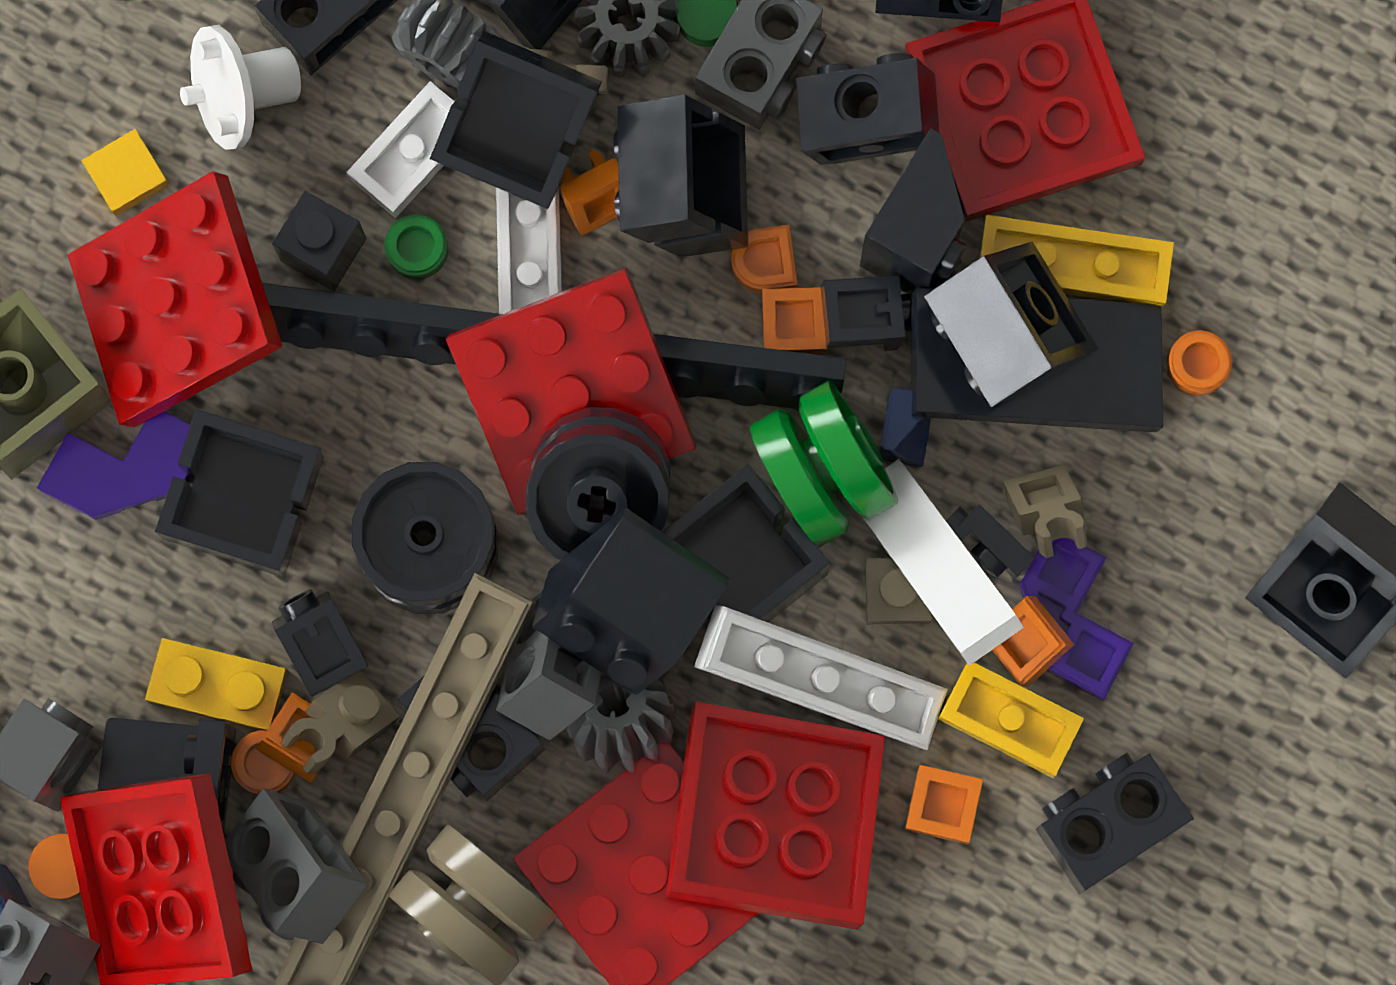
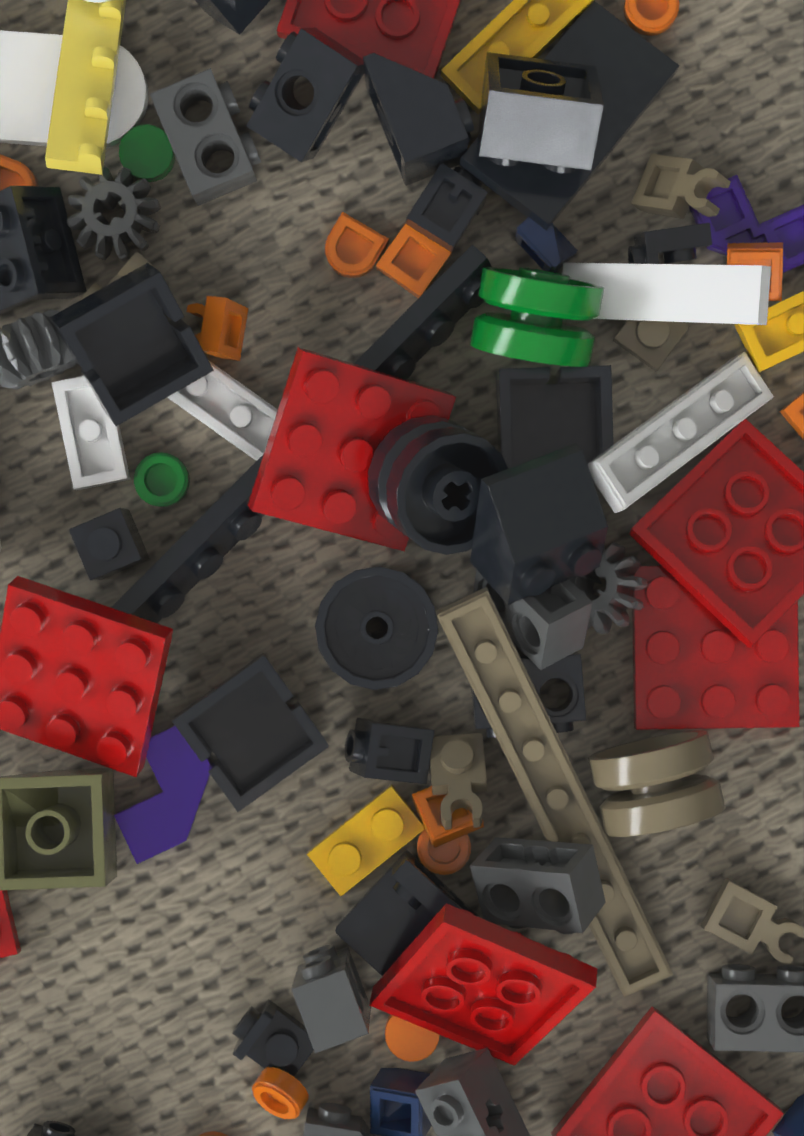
camera: 55 degrees left, 10 degrees up
(681, 176) = (256, 259): black piece -> none

